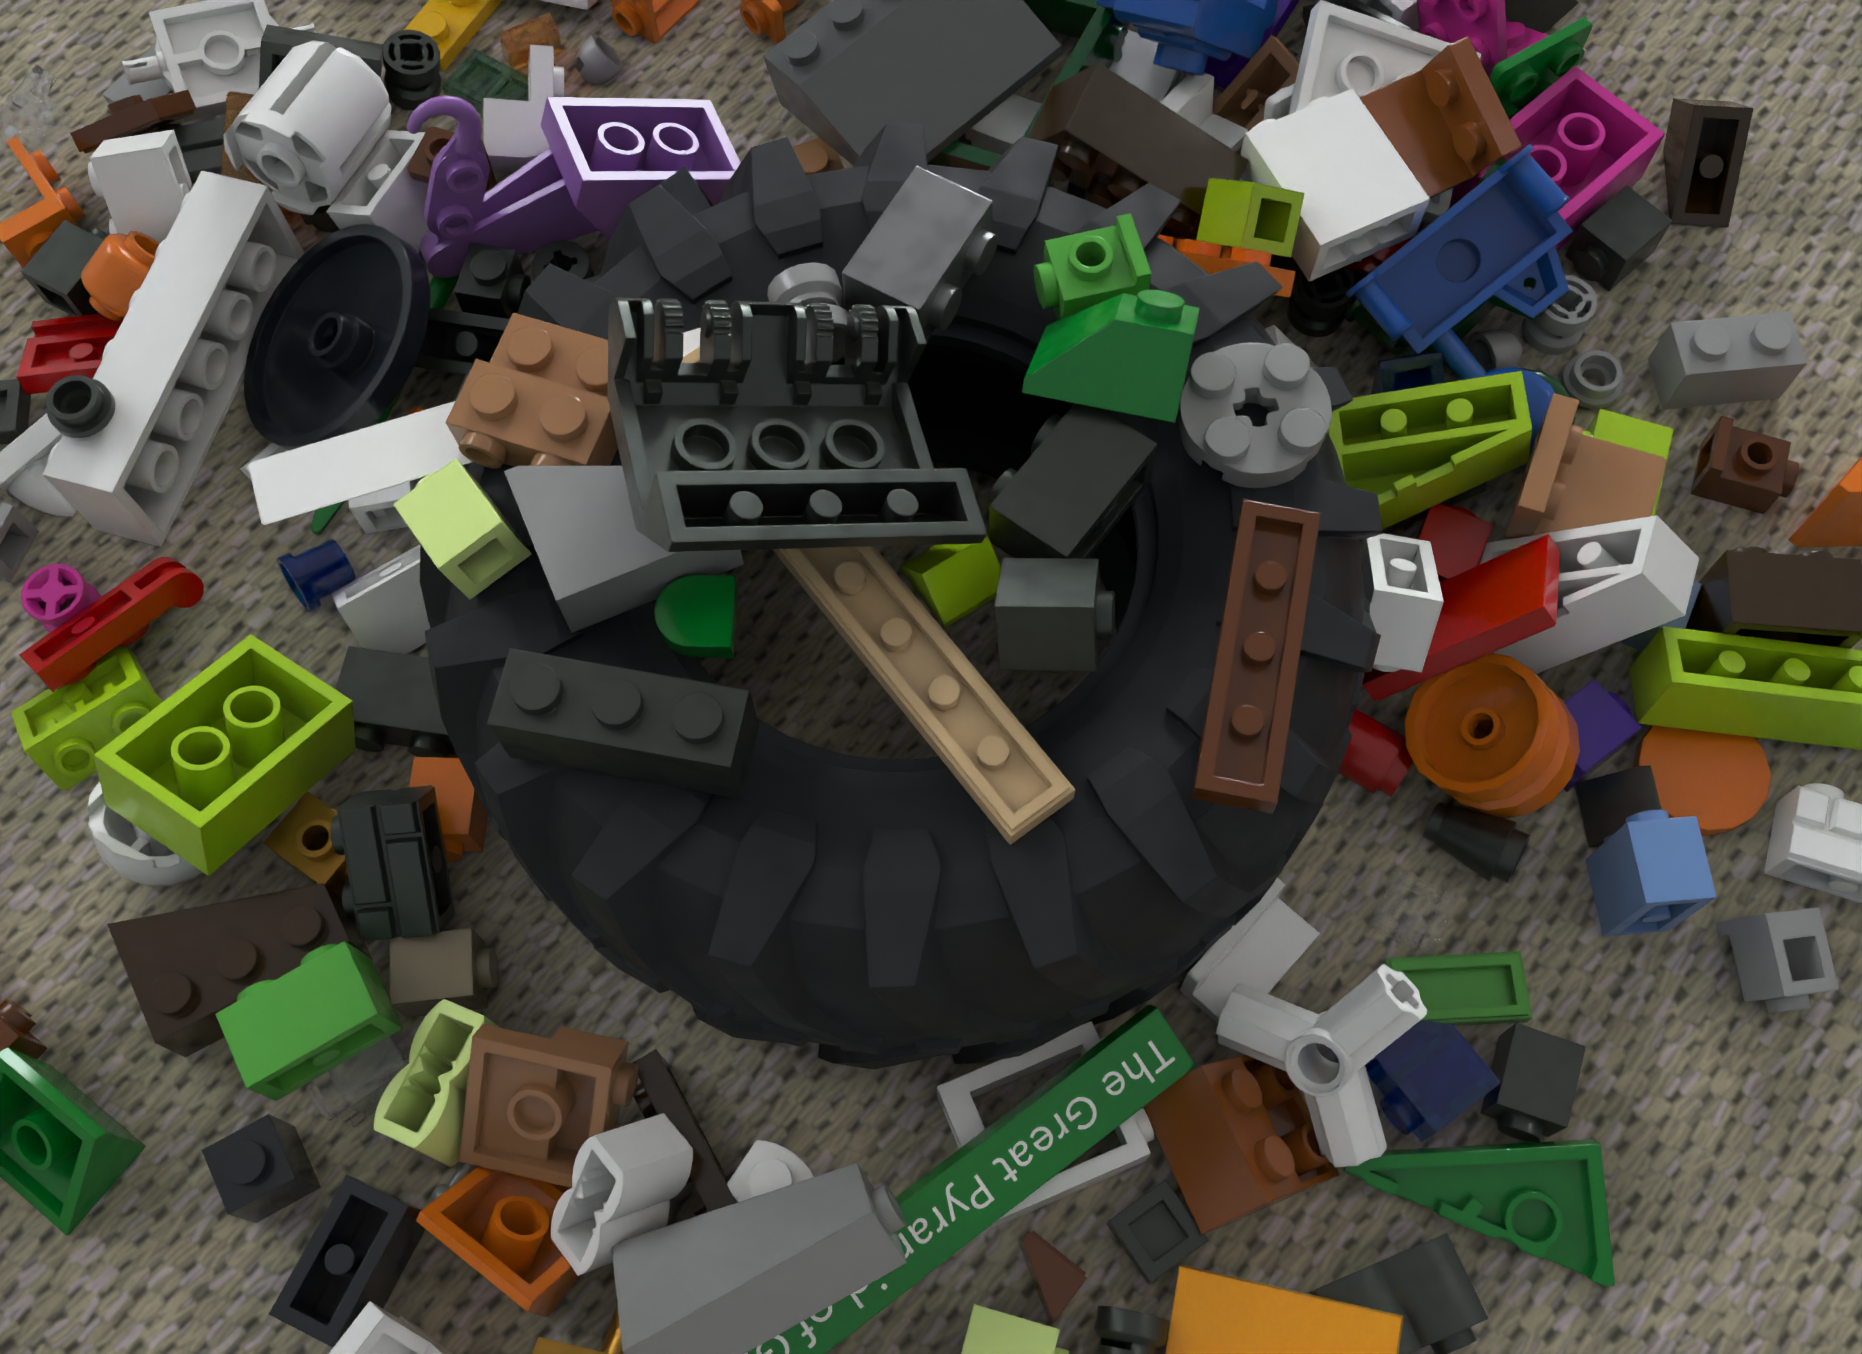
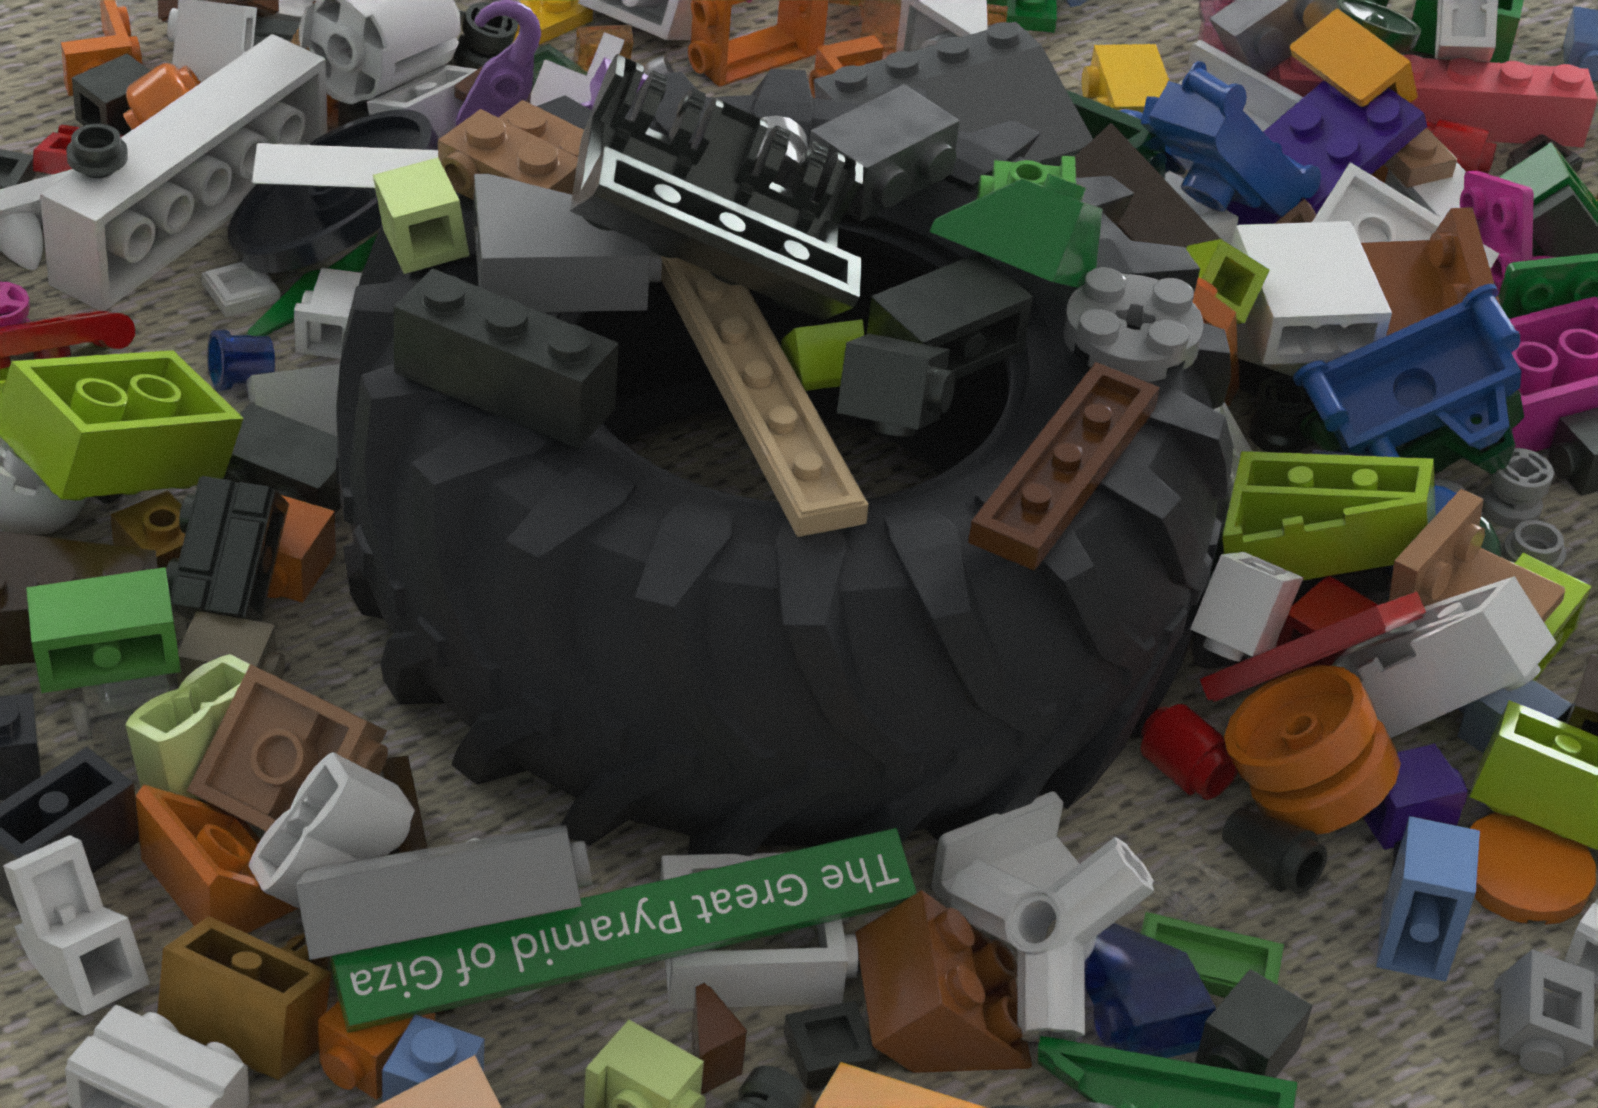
camera: 10 degrees right, 25 degrees down
(699, 615) = (599, 314): green tile -> none

